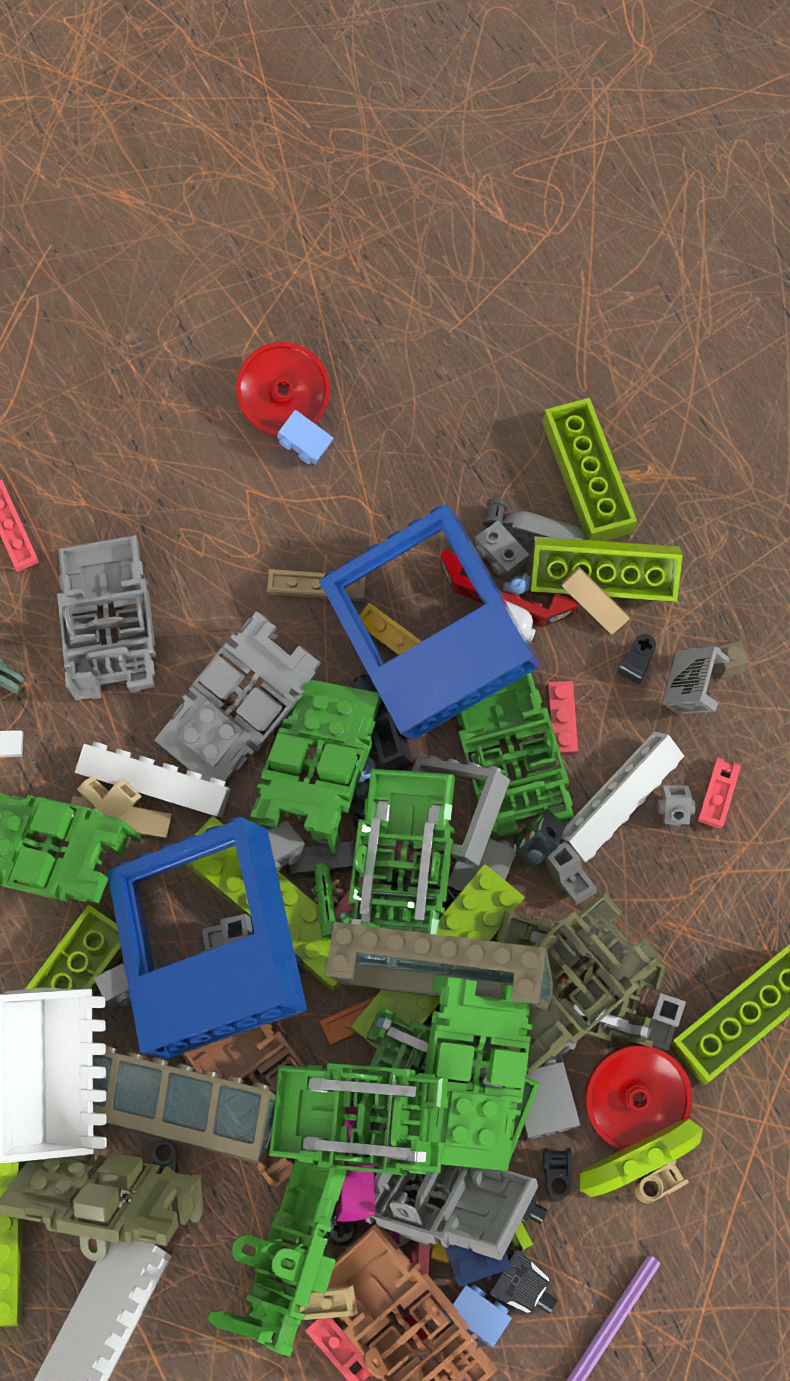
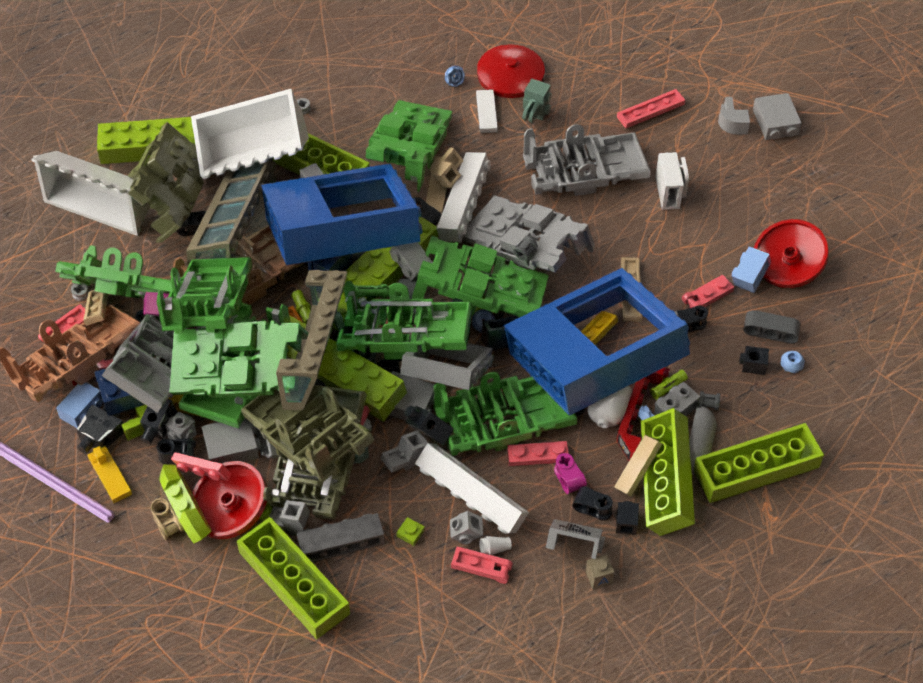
camera: 90 degrees right, 15 degrees down
(43, 428) = (733, 120): none -> light grey brick
(45, 371) = (777, 116): none -> light grey brick
(151, 511) = (671, 180): none -> white brick
(177, 831) = (428, 212): none -> black piece
(283, 695) = (529, 248): none -> dark grey bush
(327, 1006) = (302, 306): none -> lime pin
(330, 495) = (709, 292): none -> coral plate
(374, 523) = (692, 319): none -> black piece
(388, 429) = (772, 326): none -> dark grey beam
(438, 422) = (788, 365): none -> light blue plate
(439, 446) = (760, 356): none -> black brick
(532, 1158) = (181, 427): none -> light grey brick
(587, 1266) = (109, 474): none -> yellow hinge
(596, 1134) = (201, 467): none -> coral plate
(600, 681) = (569, 473): none -> dark pink piece
(657, 622) = (627, 518): none -> black brick
(672, 874) = (410, 531): none -> lime plate
(687, 957) = (341, 537): none -> flat silver brick
(694, 775) = (494, 545): none -> white cone

